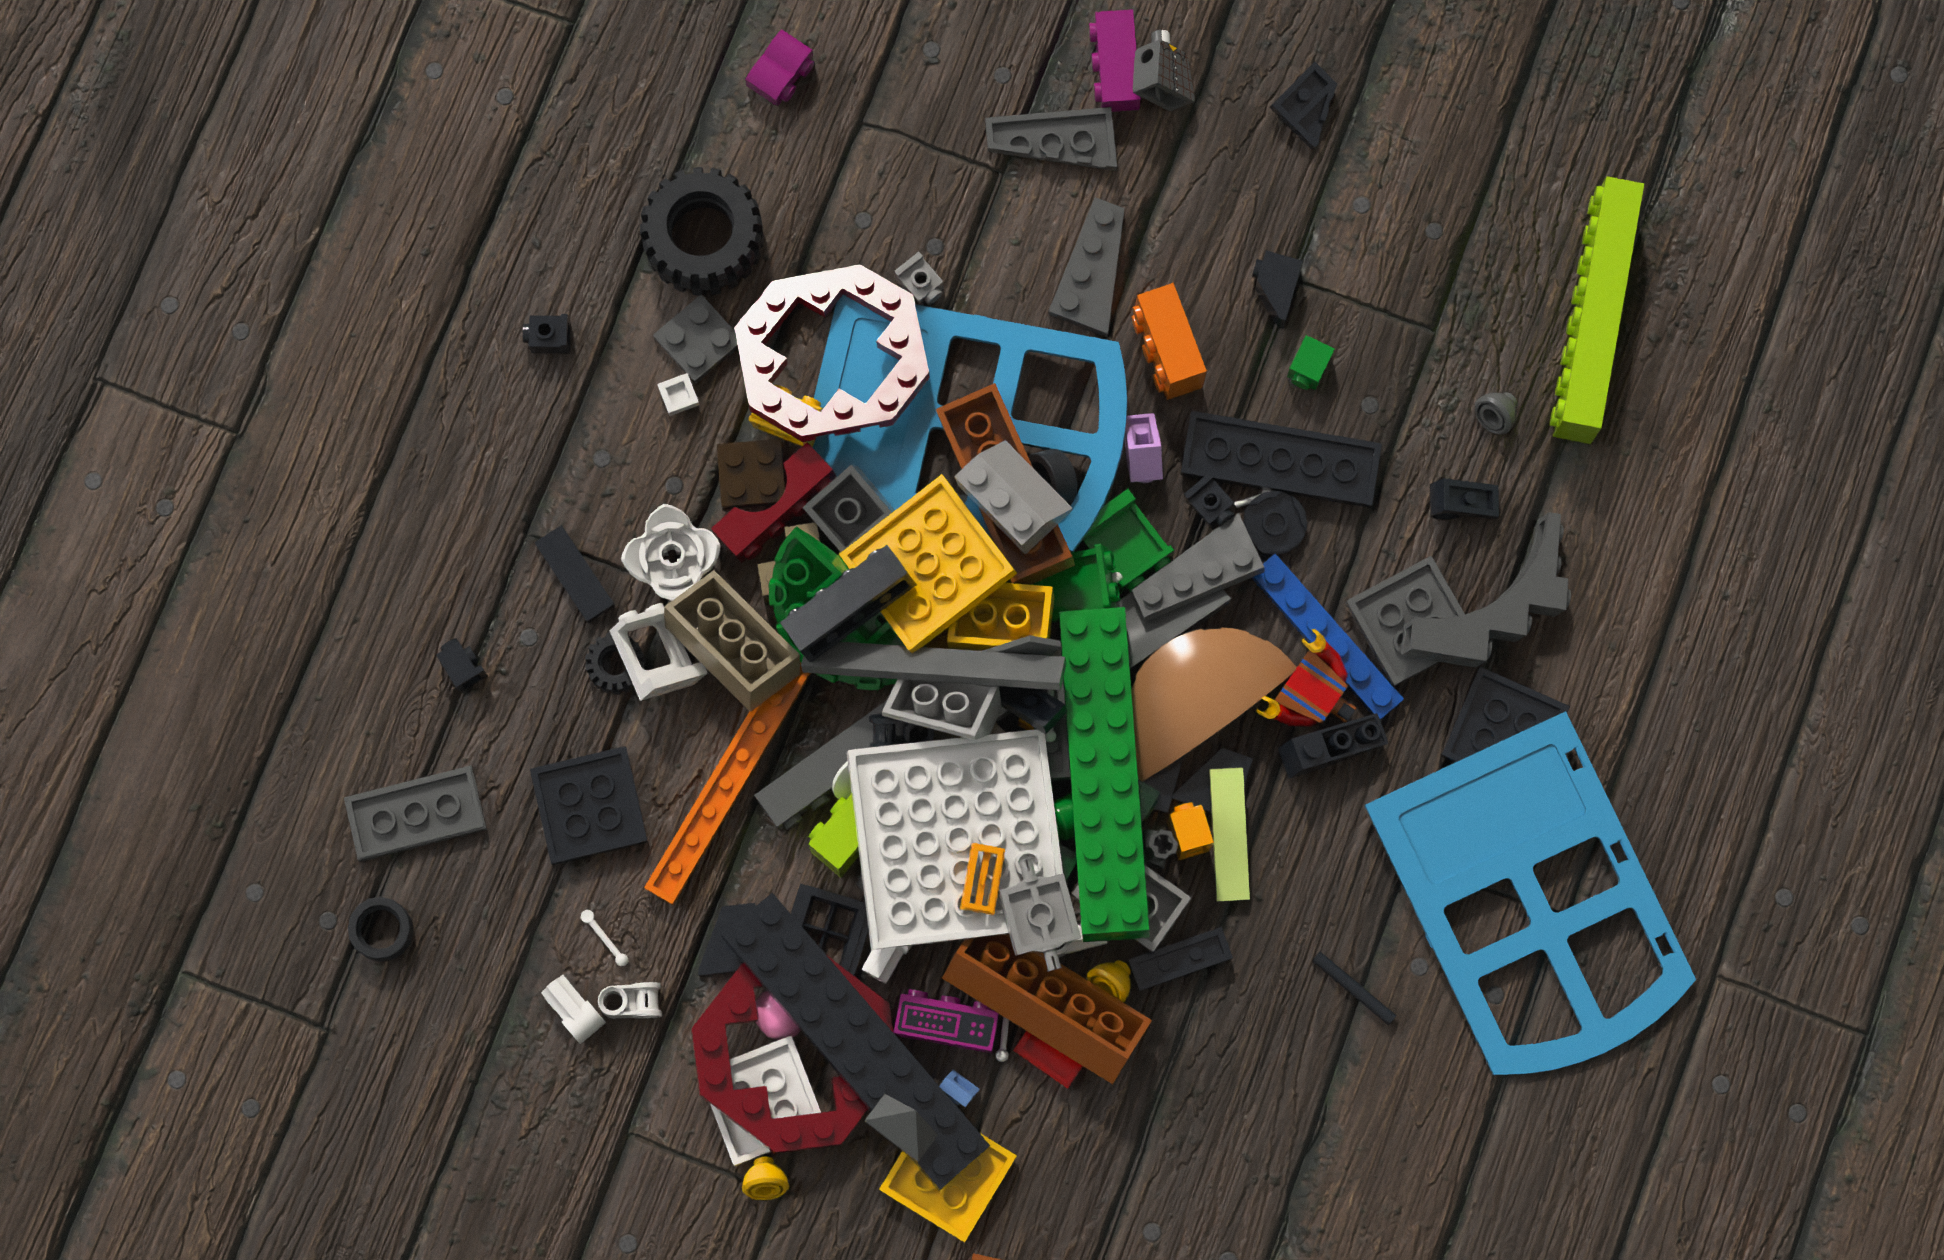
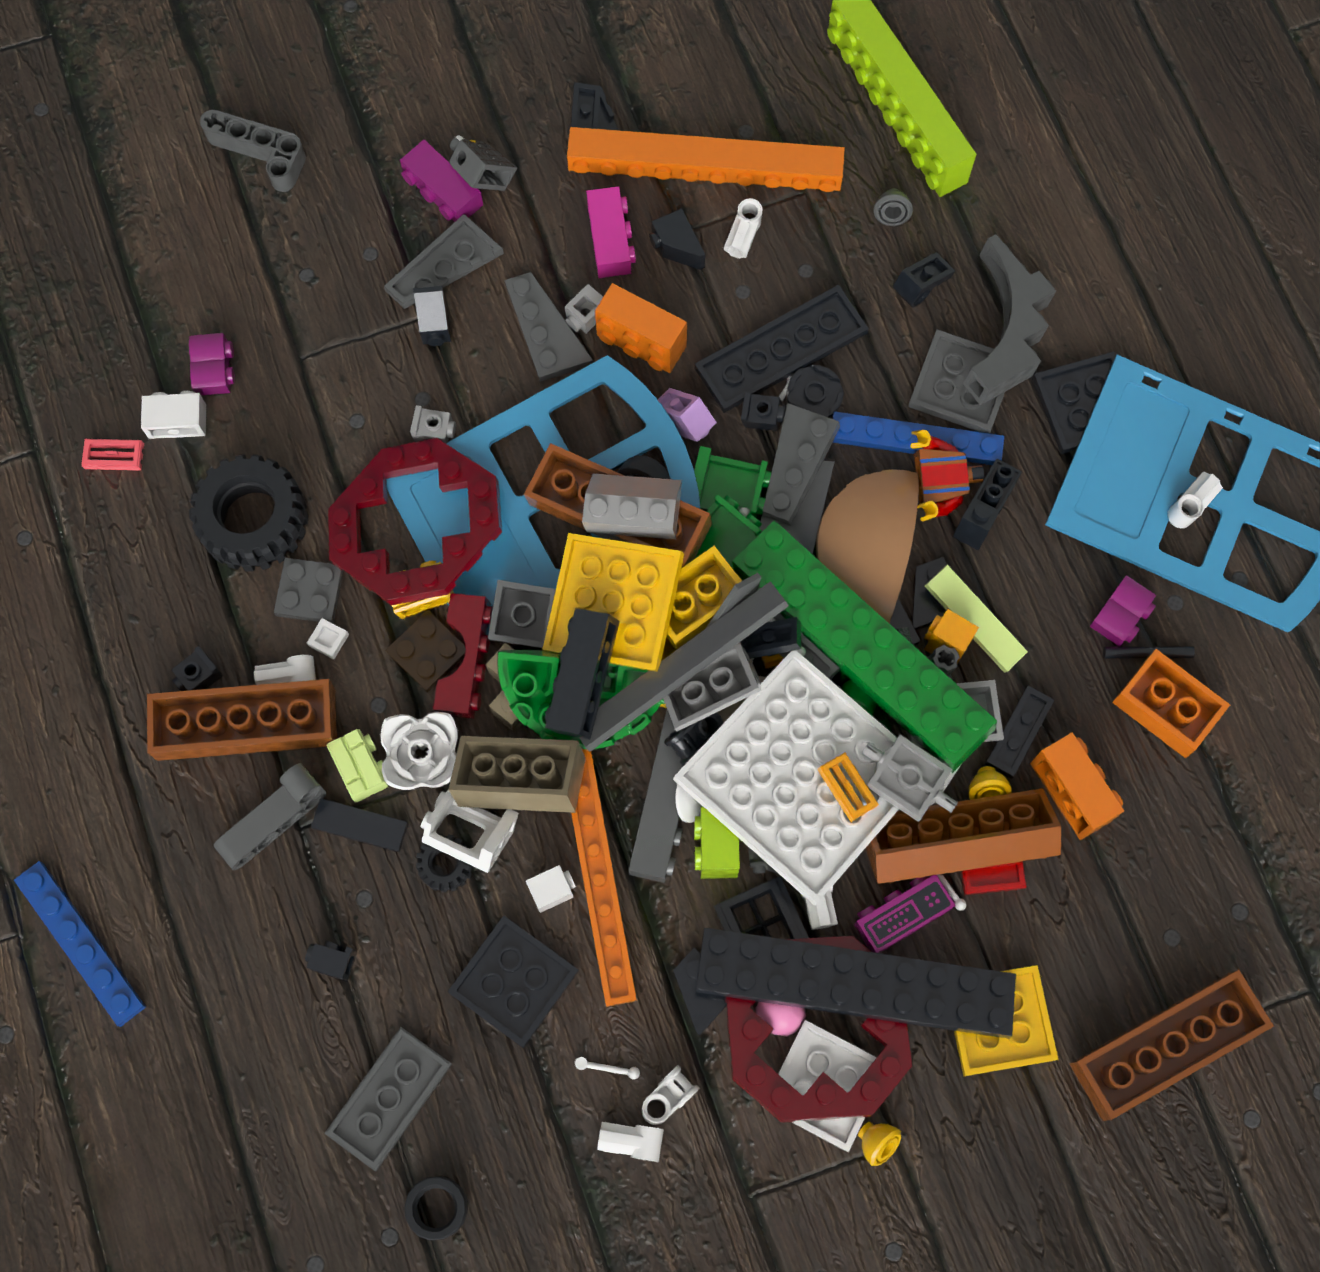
camera: 40 degrees left, 5 degrees down
(278, 482) = (80, 944): none -> blue plate
(508, 508) = (271, 817): none -> dark grey beam
(552, 406) = (241, 719): none -> dark orange brick
(613, 522) = (357, 764): none -> yellowish green brick
(626, 401) = (293, 670): none -> white piece
(654, 99) = (136, 456): none -> coral tile
(681, 756) = (551, 888): none -> white brick
(712, 89) = (173, 415): none -> white brick
(902, 1126) = (947, 1014): dark grey slope -> none
(959, 1088) = (955, 953): medium blue plate -> none
(1001, 182) = (432, 315): none -> slope
(1147, 274) = (584, 302): none -> light grey brick
(1182, 1042) = (1077, 785): none -> orange brick
(1224, 228) = (610, 232): none -> dark pink brick
(1310, 363) = (744, 271): green brick -> none
(1326, 1044) = (1171, 703): none -> orange brick
(1342, 323) = (744, 229): none -> white piece
(1363, 935) = (1123, 611): none -> magenta brick
(1369, 230) = (705, 159): none -> orange brick
(1512, 893) = (1195, 500): none -> white piece

